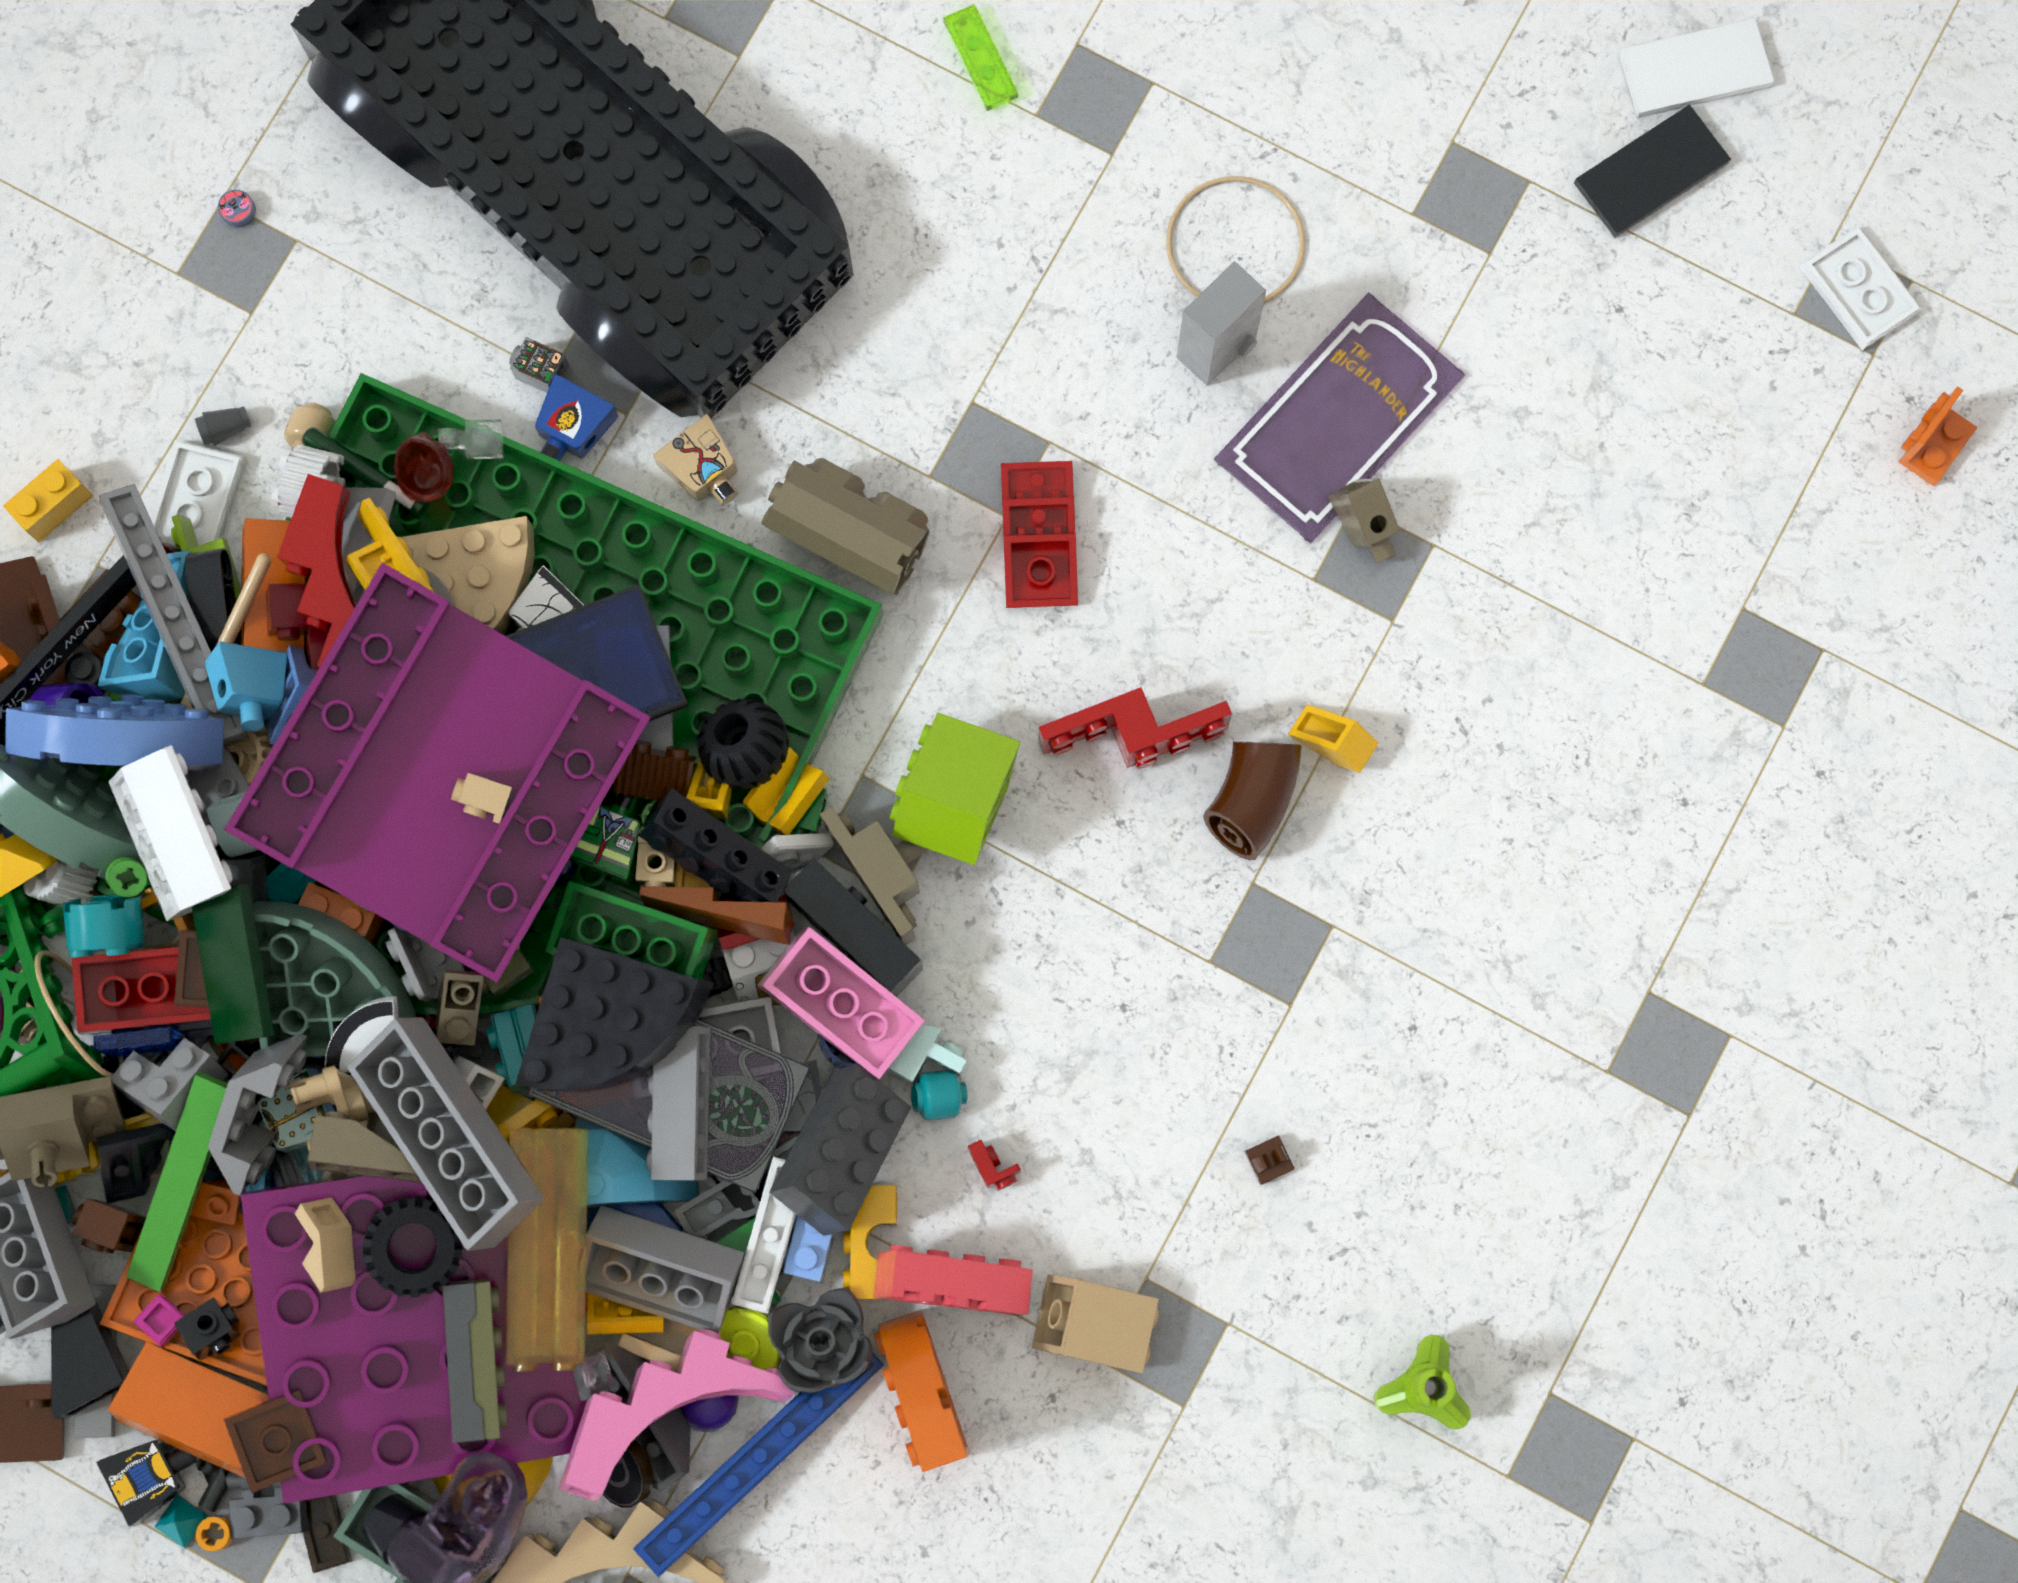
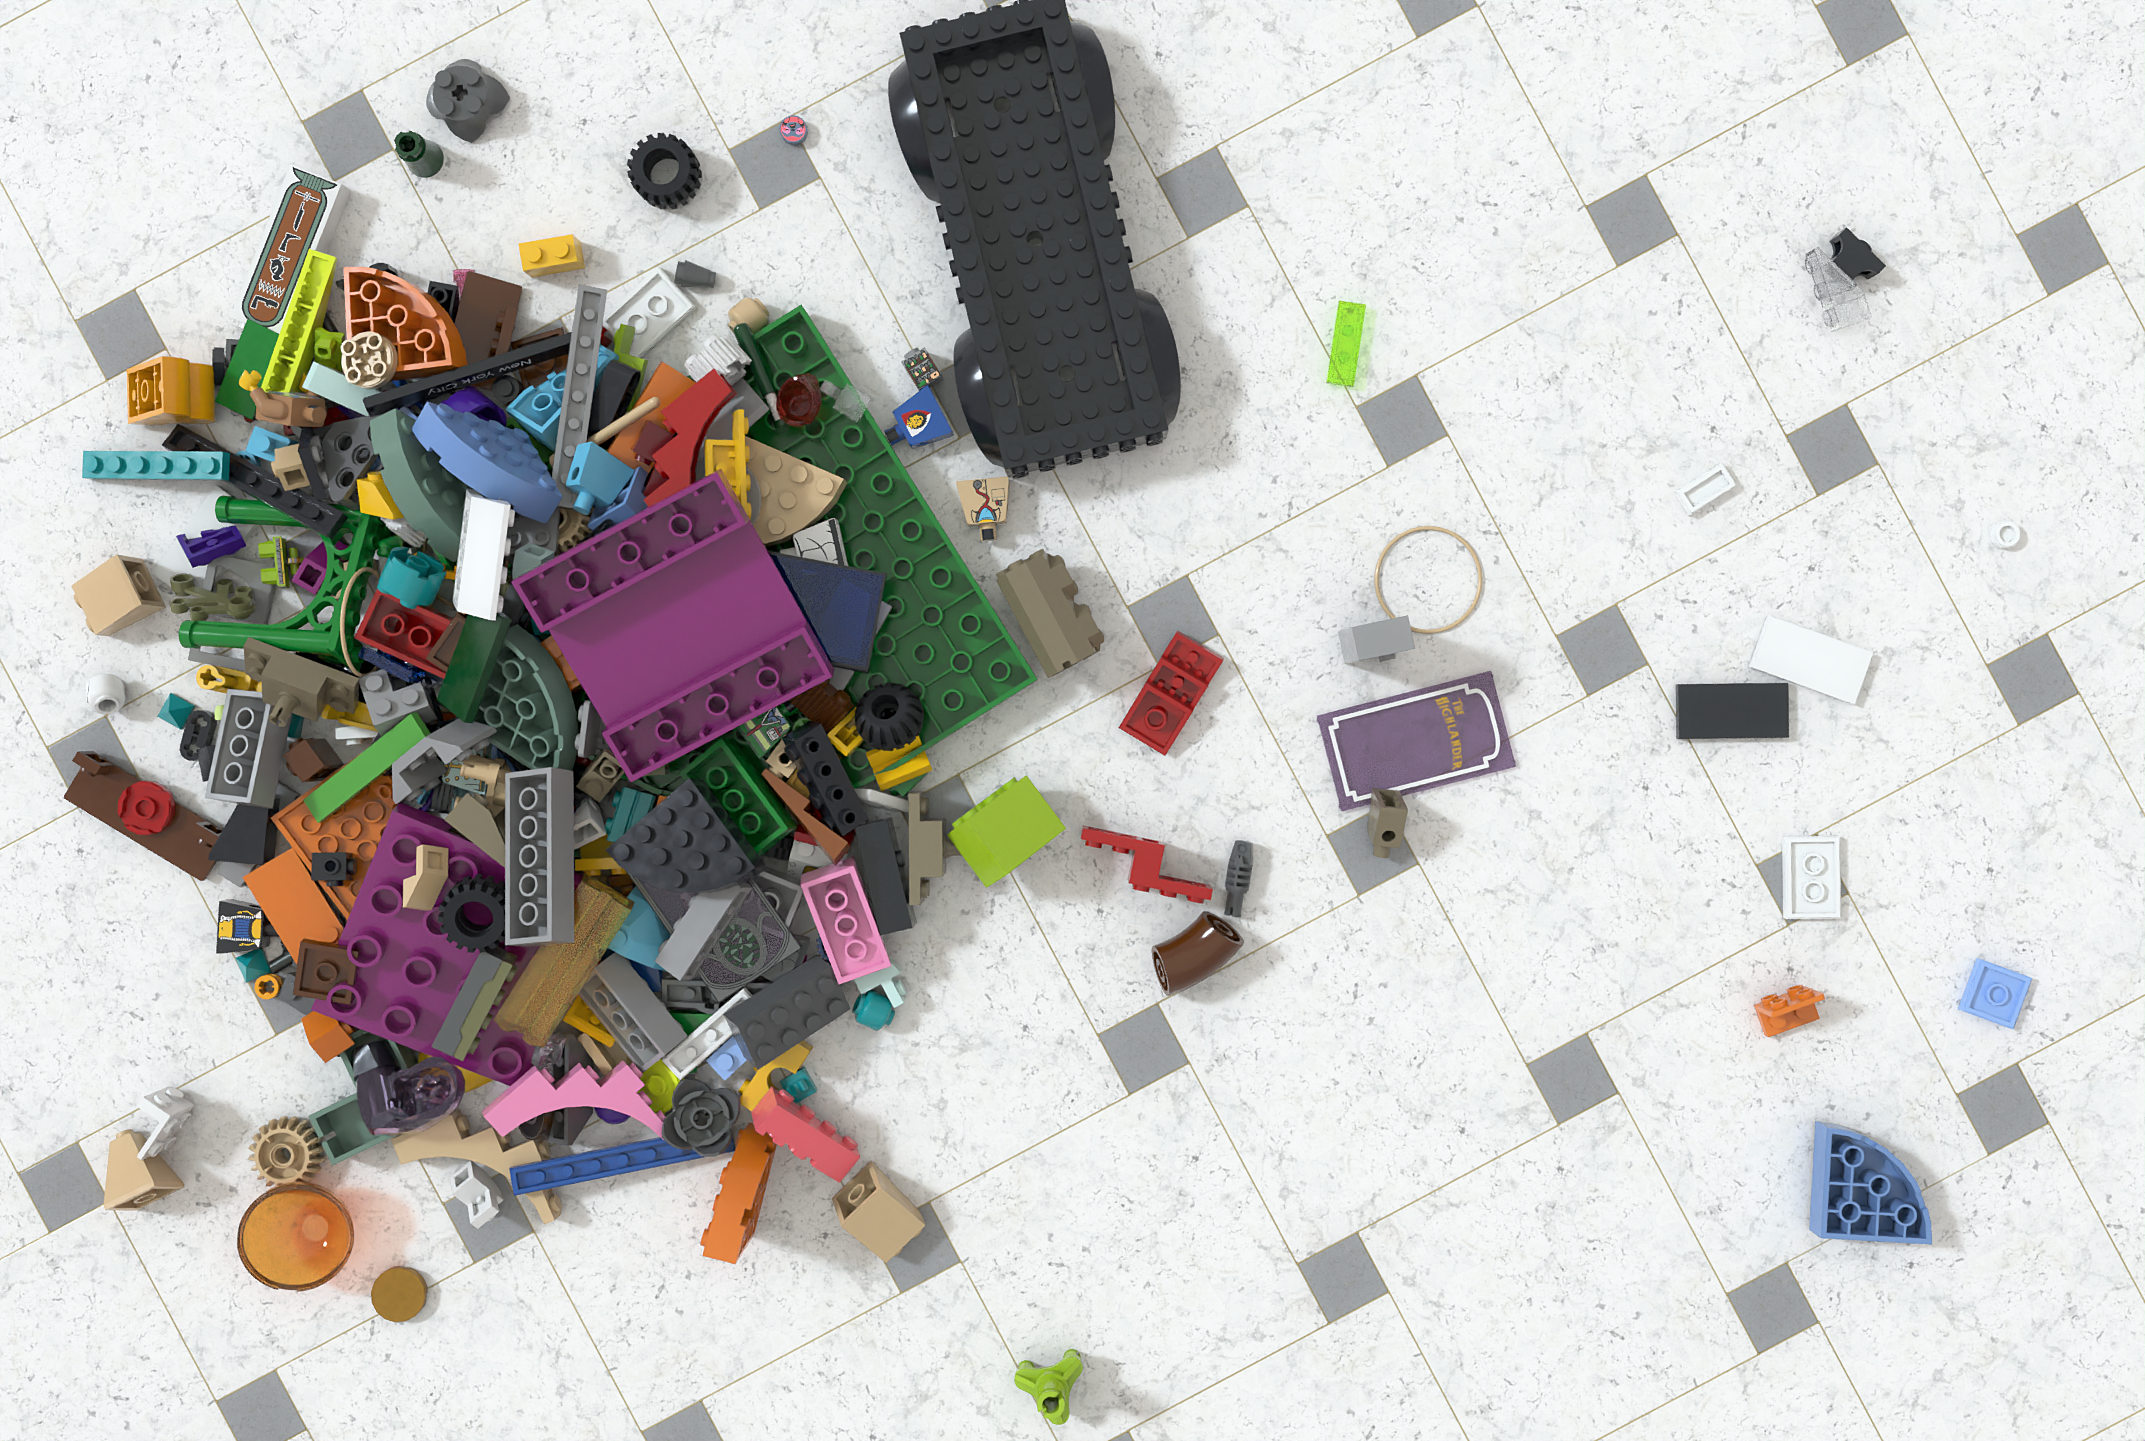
camera: 30 degrees right, 10 degrees up
(101, 314) = (649, 155): none -> black tyre
(121, 868) = (445, 549): bright green wheel -> none
(130, 1159) = (345, 732): black wing -> none
(158, 1320) = (308, 840): dark pink tile -> none
(319, 1525) = (327, 1035): none -> orange brick
(359, 1031) = (530, 753): tile -> none
(481, 796) = (694, 658): tan brick -> none
(910, 1235) = (799, 1085): none -> teal tile
(986, 1161) = (877, 1069): red bracket -> none
(1247, 683) = (1238, 876): none -> dark grey hinge
(1269, 1160) = (1051, 1181): reddish brown tile -> none
(1334, 738) = (1268, 948): yellow slope -> none

